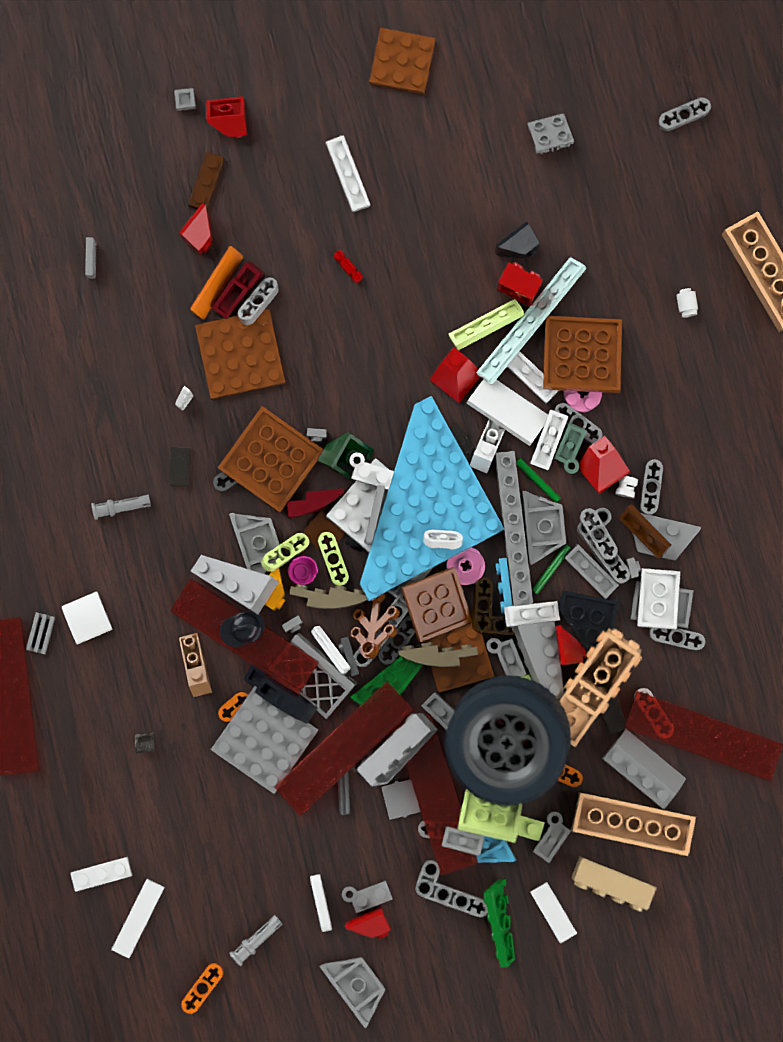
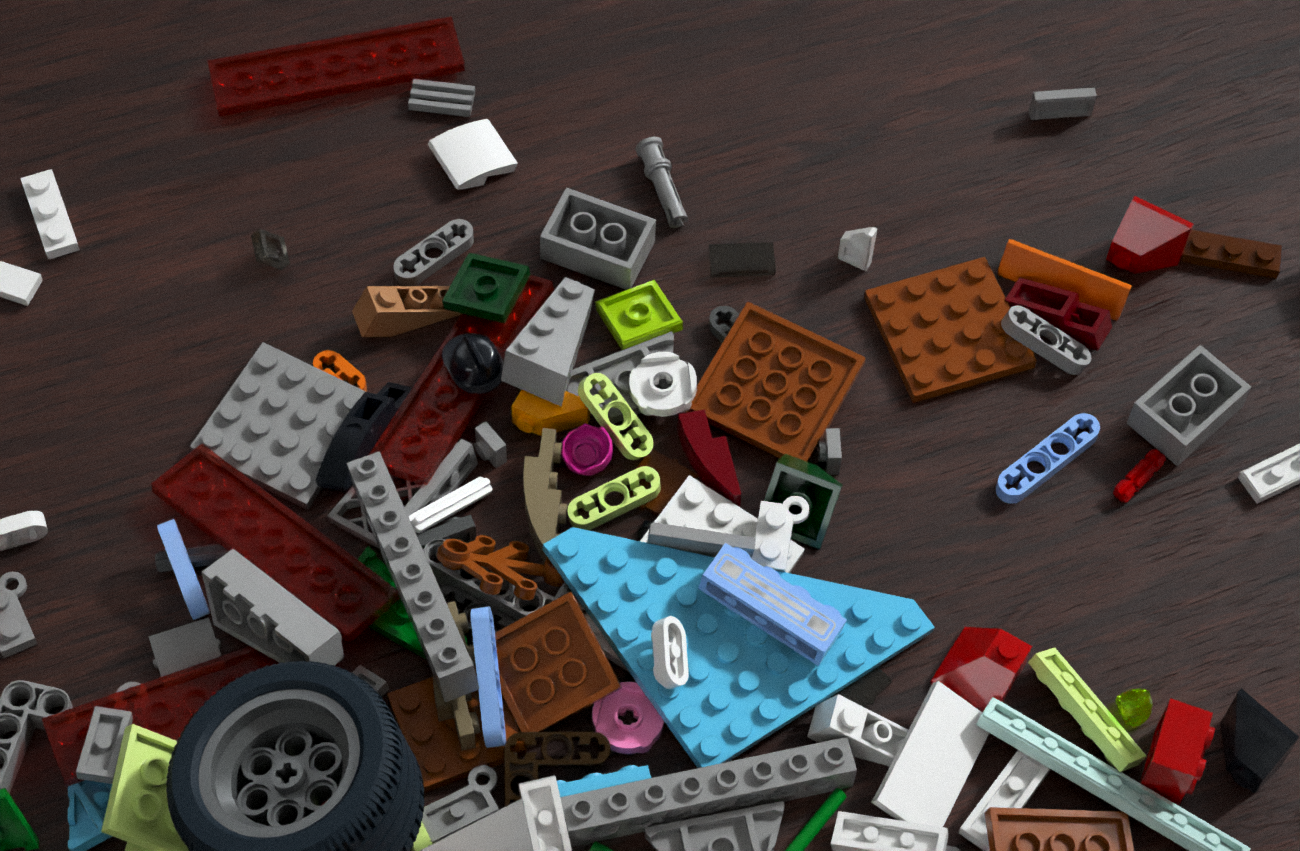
camera: 75 degrees right, 25 degrees down
(142, 638) = (440, 240): none -> light grey beam
(162, 549) = (597, 239): none -> light grey brick
(192, 617) = (486, 287): none -> dark green plate
(214, 531) = (638, 314): none -> lime plate
(261, 514) = (659, 401): none -> white plate
(311, 230) = (1188, 405): none -> light grey brick
(333, 313) = (1050, 460): none -> light blue beam
(356, 798) = (183, 569): none -> light blue beam
(383, 673) = (413, 577): none -> light grey brick
(420, 479) = (772, 603): none -> light blue brick
(444, 637) = (488, 677): none -> light blue beam
(485, 299) = (1133, 703): none -> clear neon green tile

